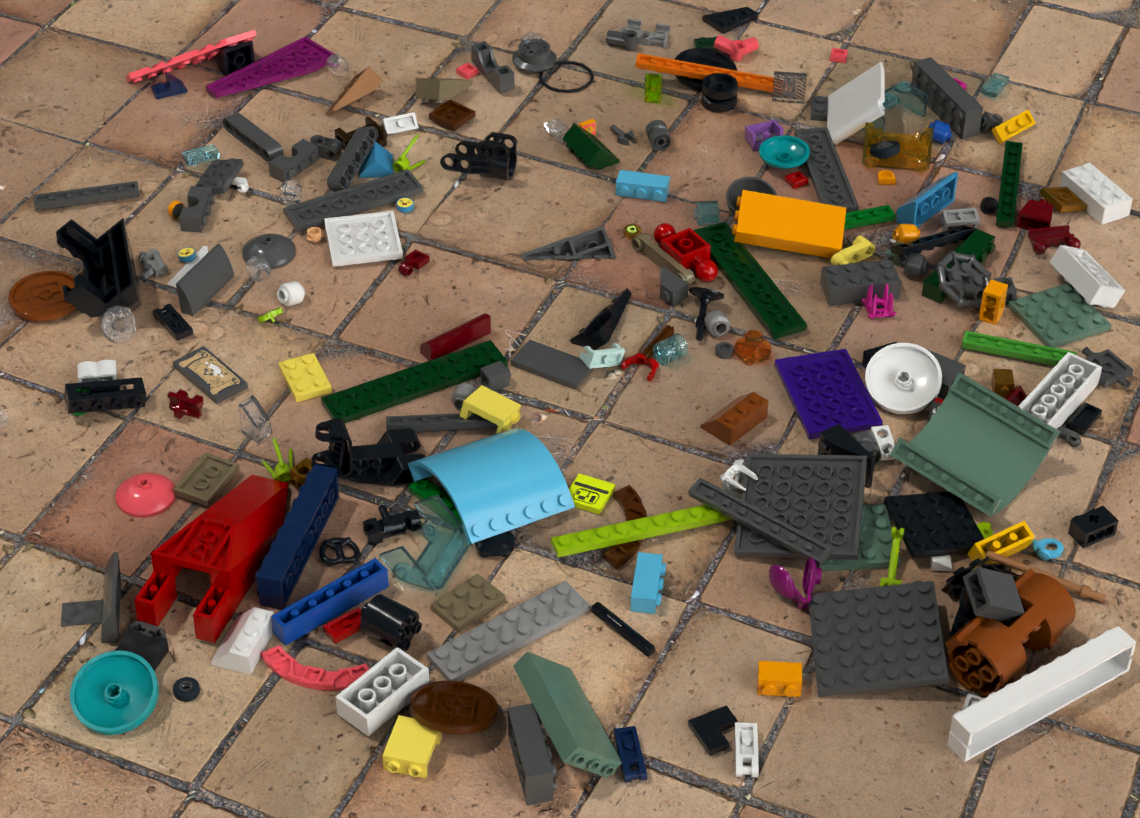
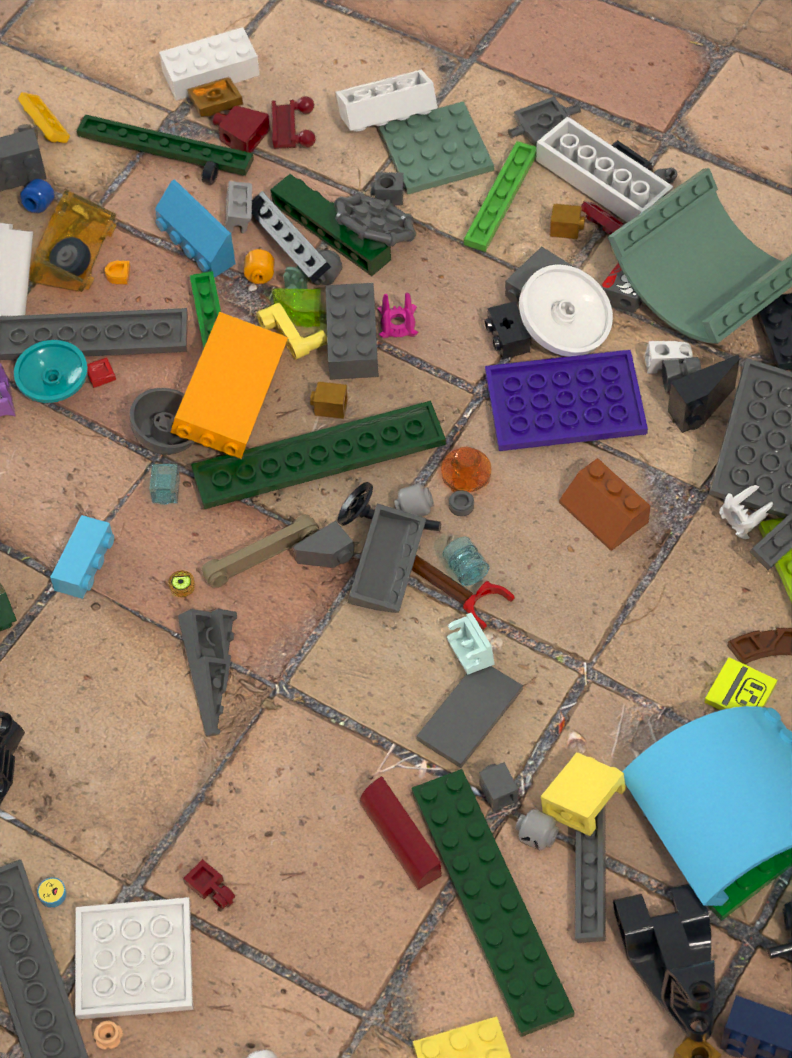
camera: 80 degrees left, 15 degrees up
(603, 324) = (403, 646): black wedge -> none
(665, 310) = (387, 559): none -> dark grey slope
(687, 250) = (254, 516): red brick -> none
(796, 279) = (330, 400): none -> pearl gold brick
(876, 252) = (300, 305): none -> clear neon green slope
(993, 302) = (422, 198): light orange brick -> none

